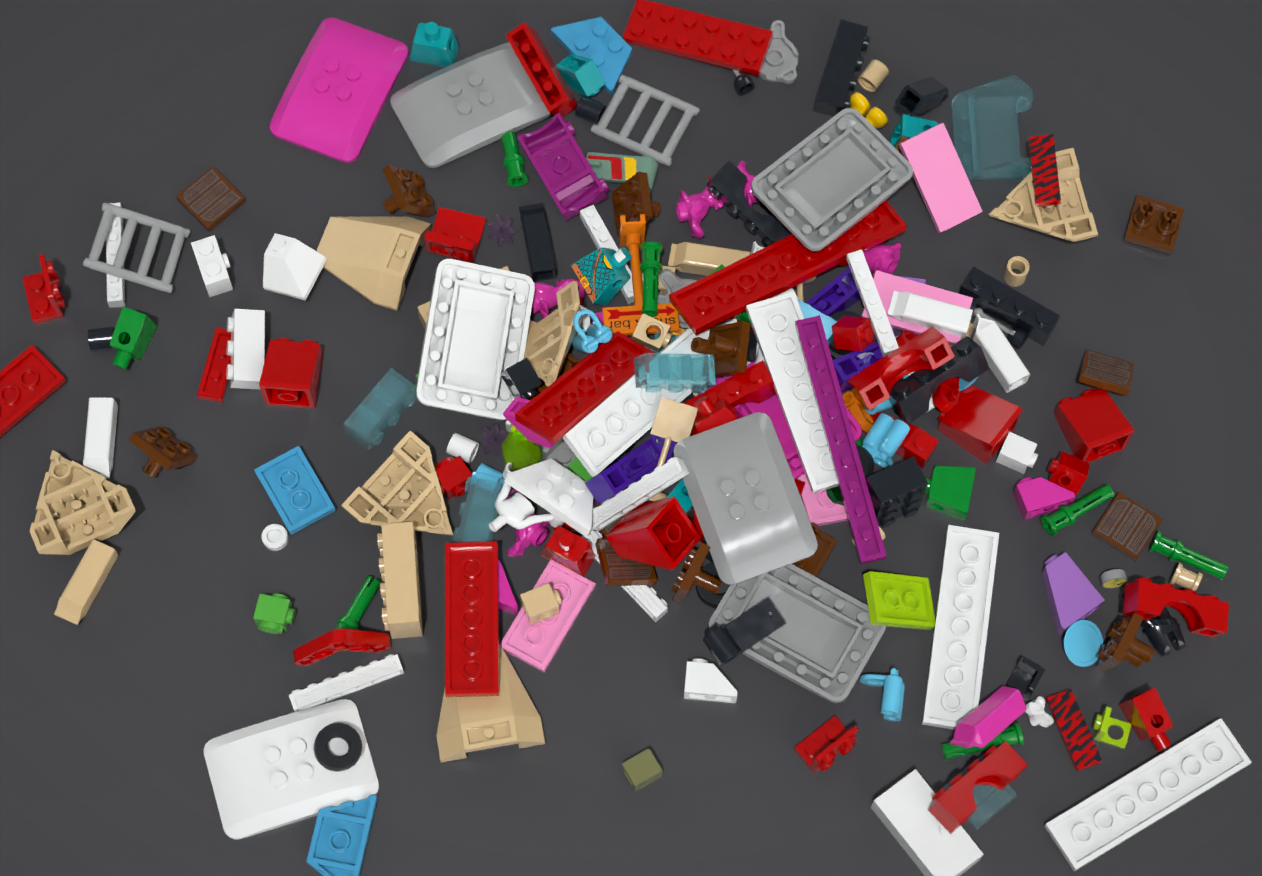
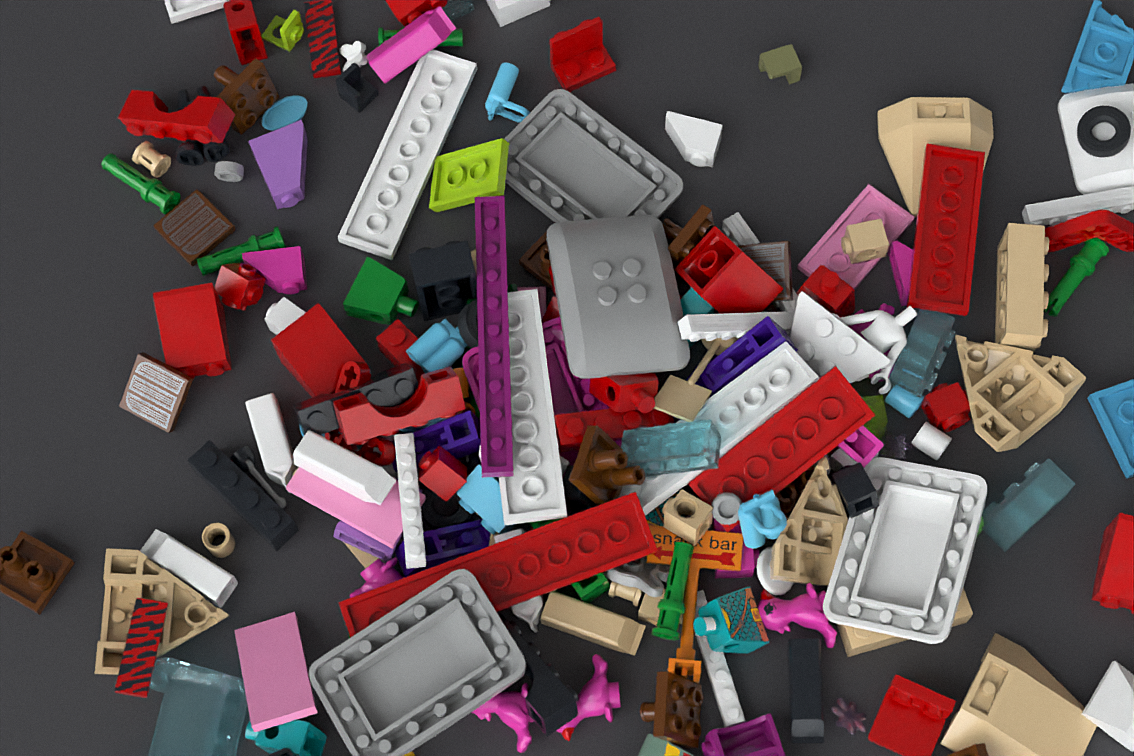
camera: 165 degrees left, 0 degrees up
(621, 341) = (726, 508): none -> light grey tile
(742, 633) = (666, 161): black door -> none
(1033, 247) = (190, 567): none -> white piece

